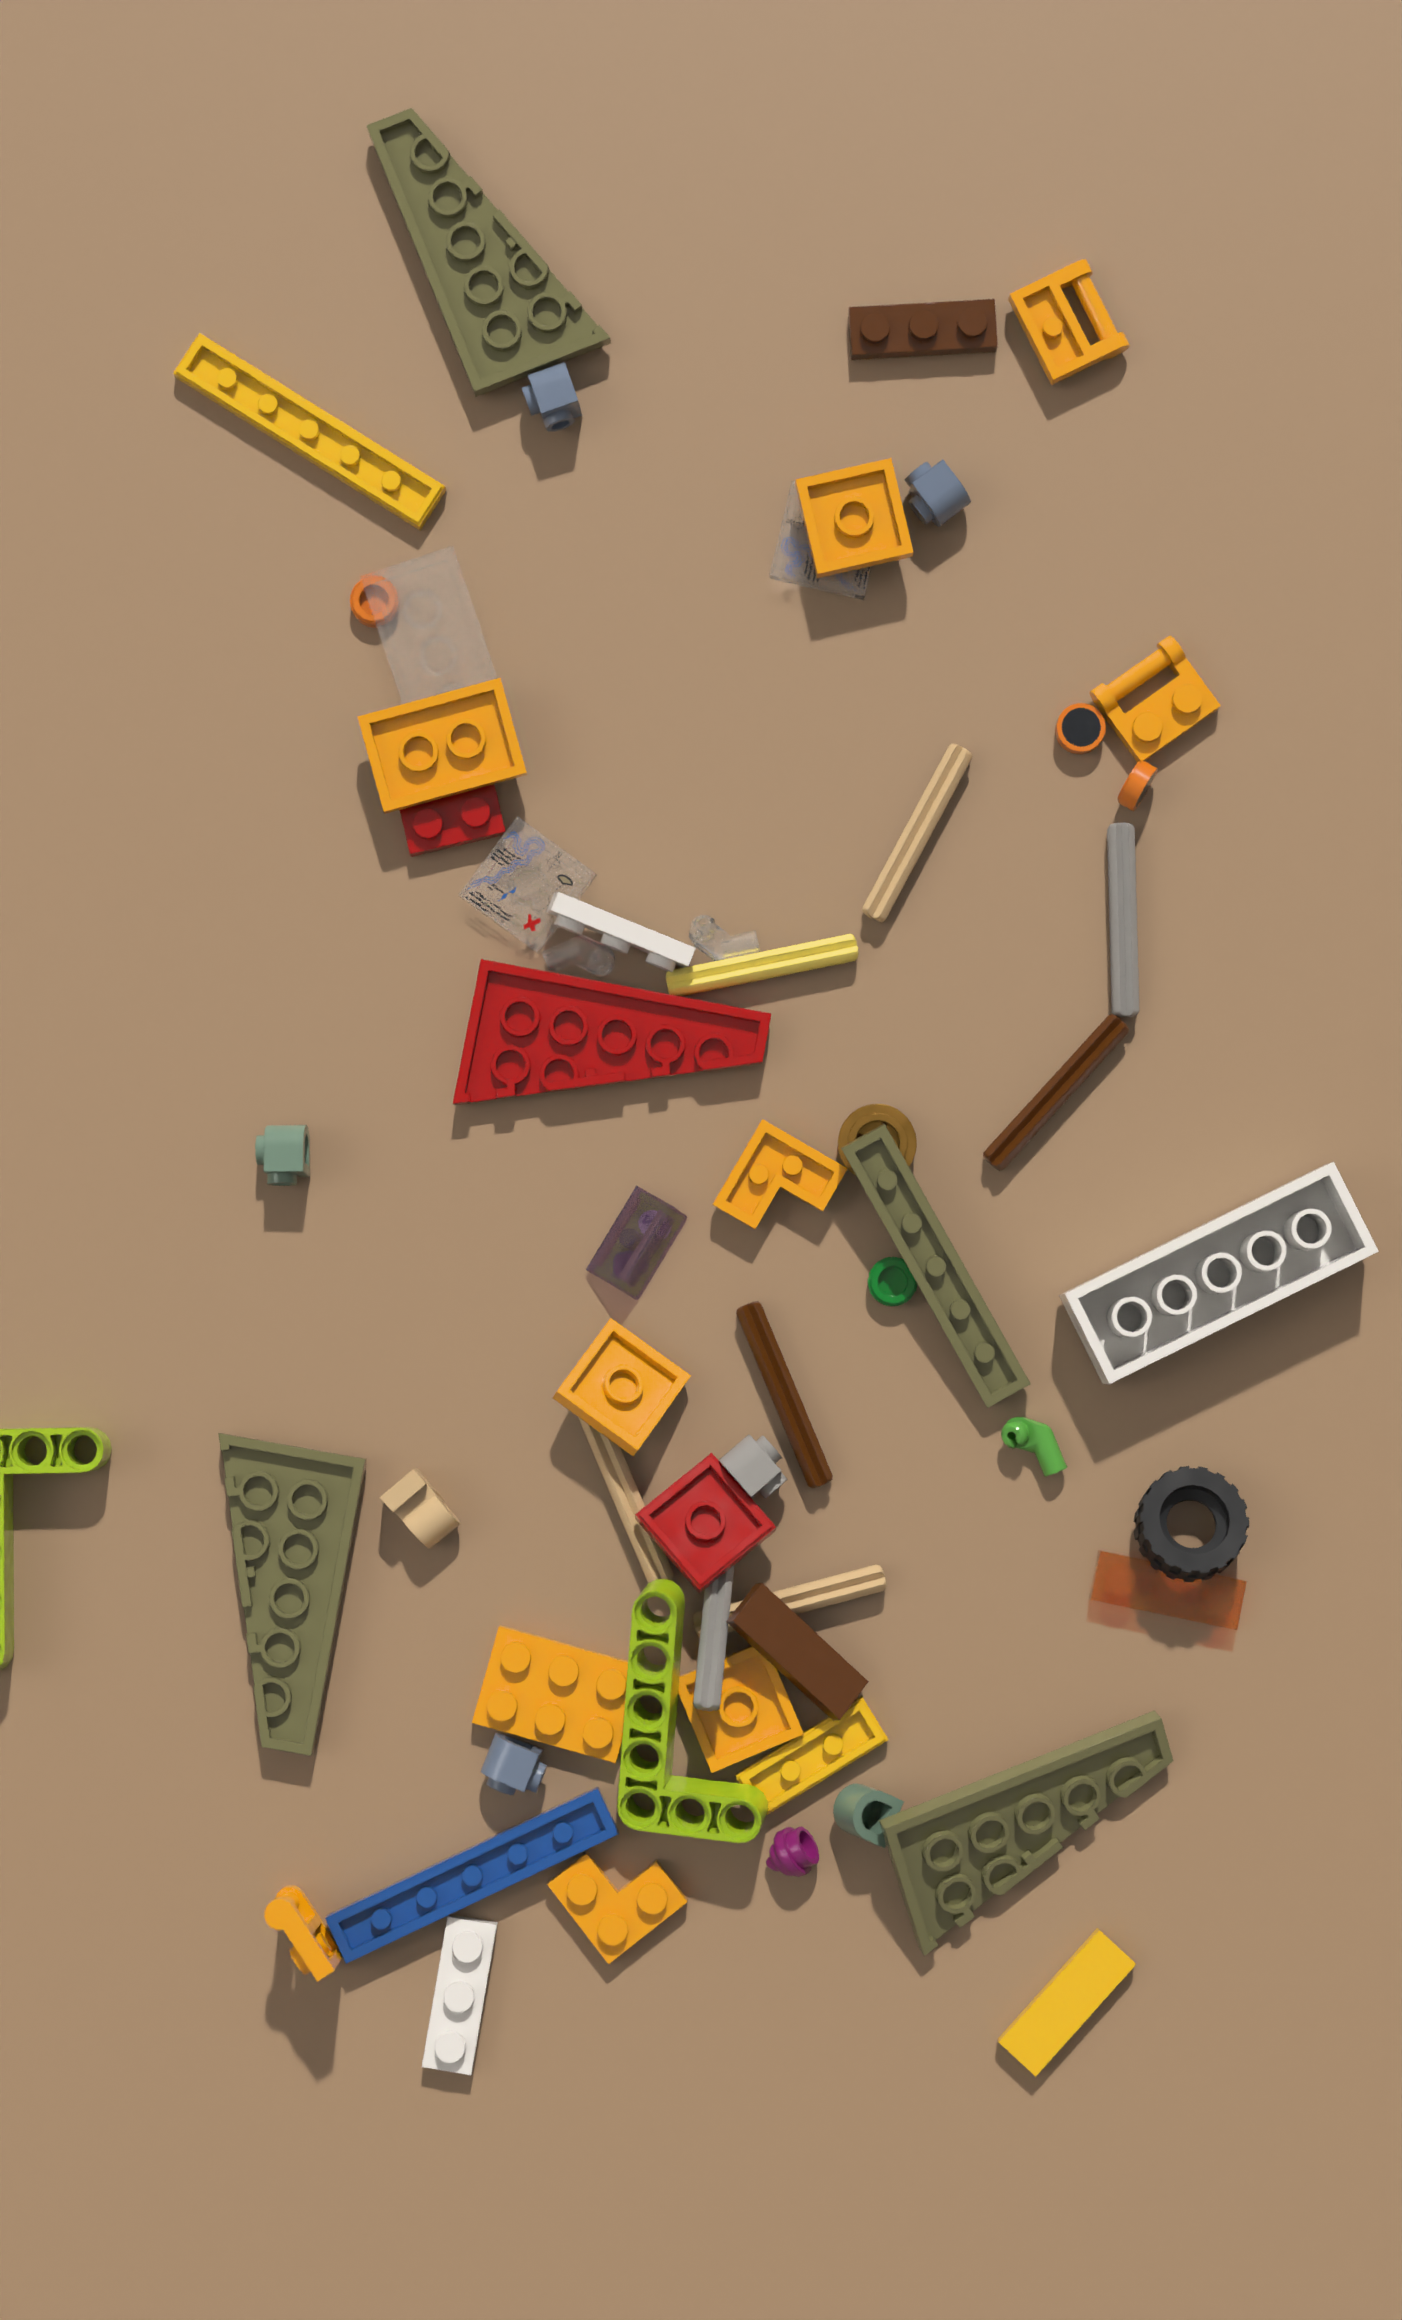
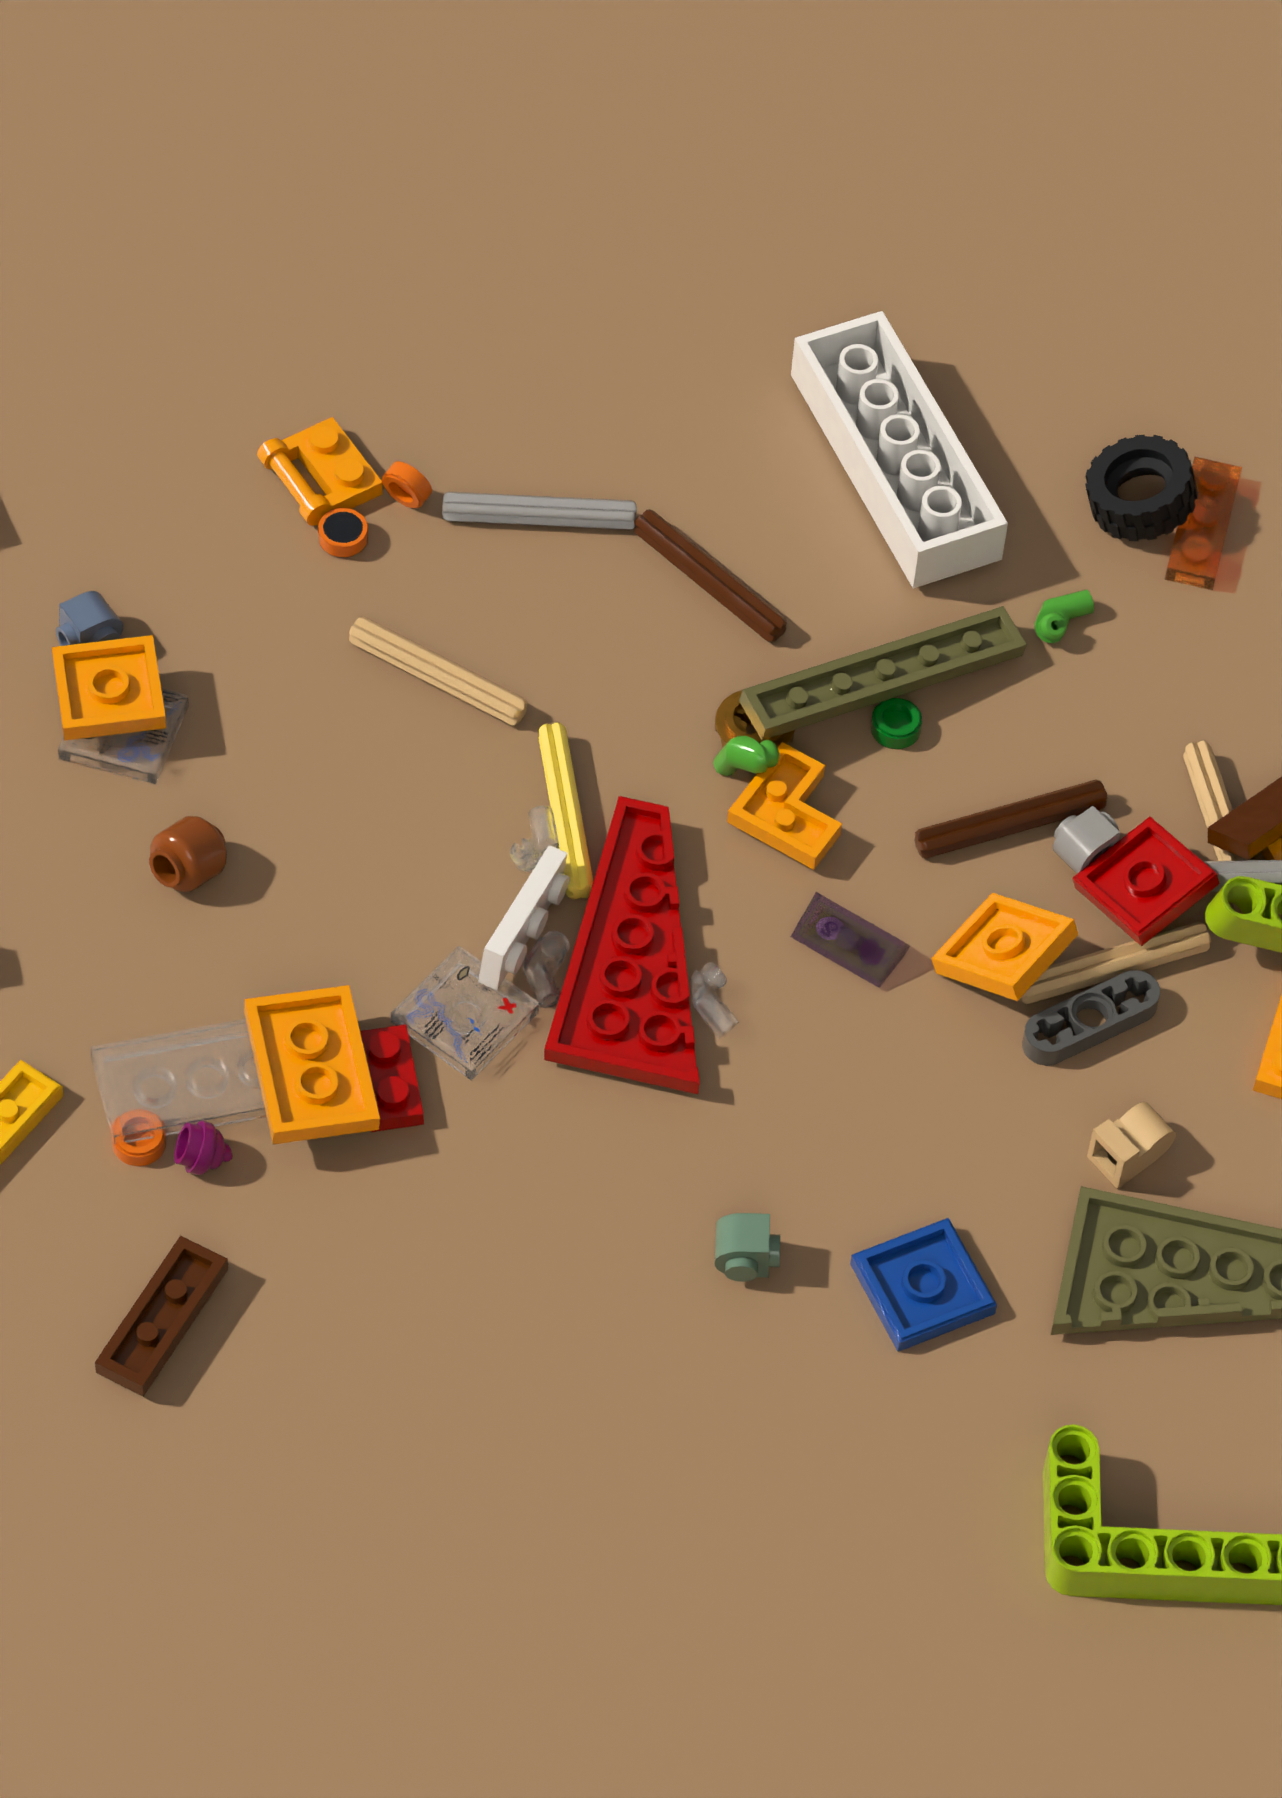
camera: 90 degrees left, 30 degrees down
(186, 639) = (161, 1316): none -> reddish brown plate
(266, 1316) = (923, 1284): none -> blue tile
(360, 657) = (201, 1148): none -> magenta plate
(555, 1106) = (707, 1002): none -> clear arm
(591, 1497) = (1080, 1037): none -> dark grey beam
(676, 613) = (187, 854): none -> dark orange head
(824, 1128) = (747, 755): none -> bright green arm

